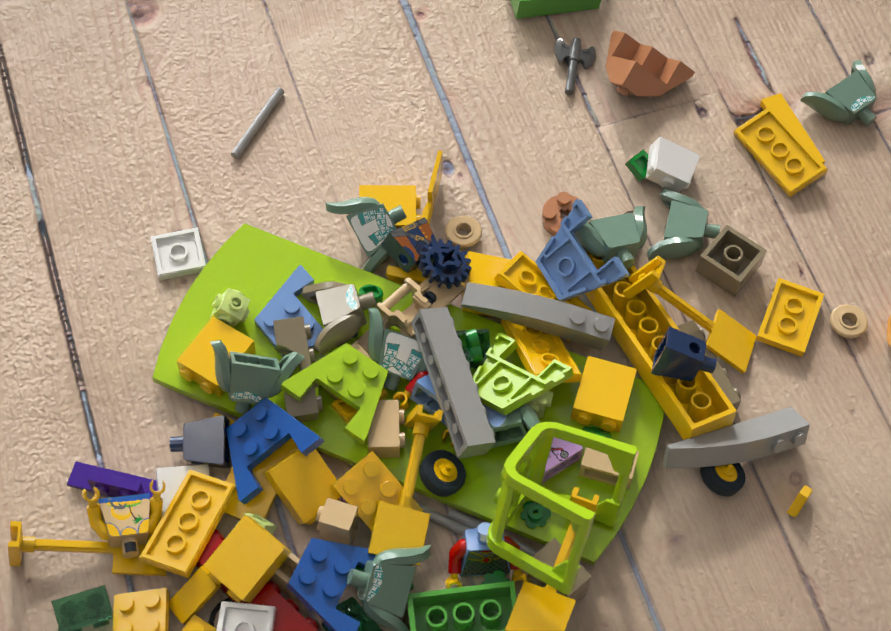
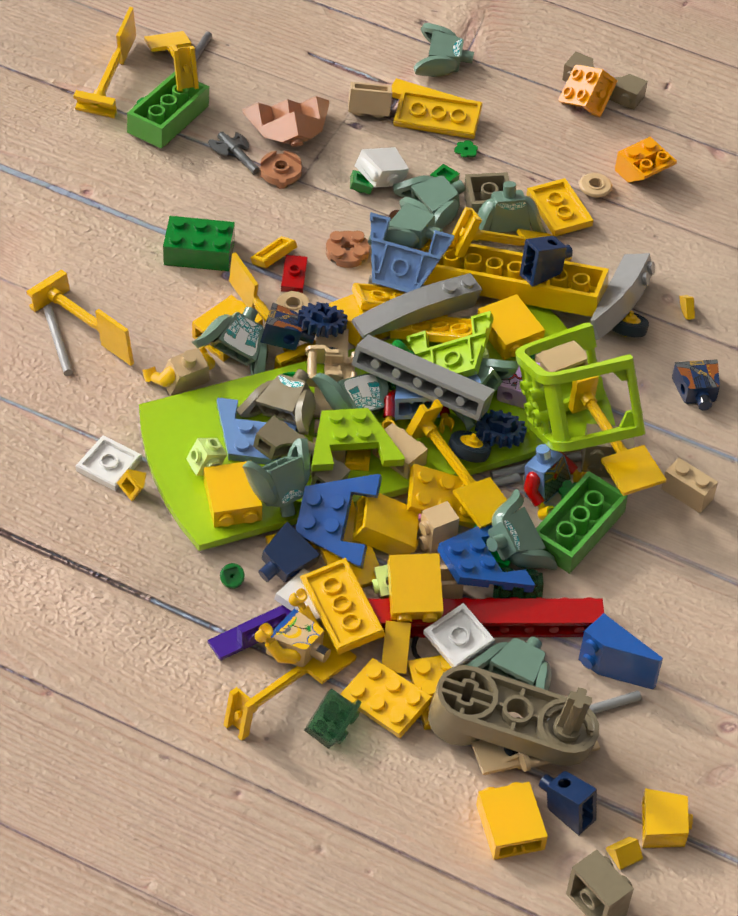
camera: 45 degrees left, 10 degrees down
(153, 424) = (232, 576): none -> green tile
(168, 284) = (132, 483): none -> yellow slope
(291, 78) = (112, 334): none -> yellow piece
(310, 222) = (183, 371): none -> tan torso
(447, 122) = (199, 243): none -> green brick
(481, 478) = (501, 429): none -> dark blue gear
(496, 205) = (294, 273): none -> red plate
(500, 173) = (273, 252): none -> yellow tile
(590, 115) = (281, 177): none -> nougat plate
(719, 212) = (450, 174): none -> green plate
(723, 581) = (697, 382): none -> torso
(725, 288) = (510, 211): none -> sand green torso
(730, 95) = (369, 99): none -> tan piece
(770, 201) = (466, 149): none -> green plant

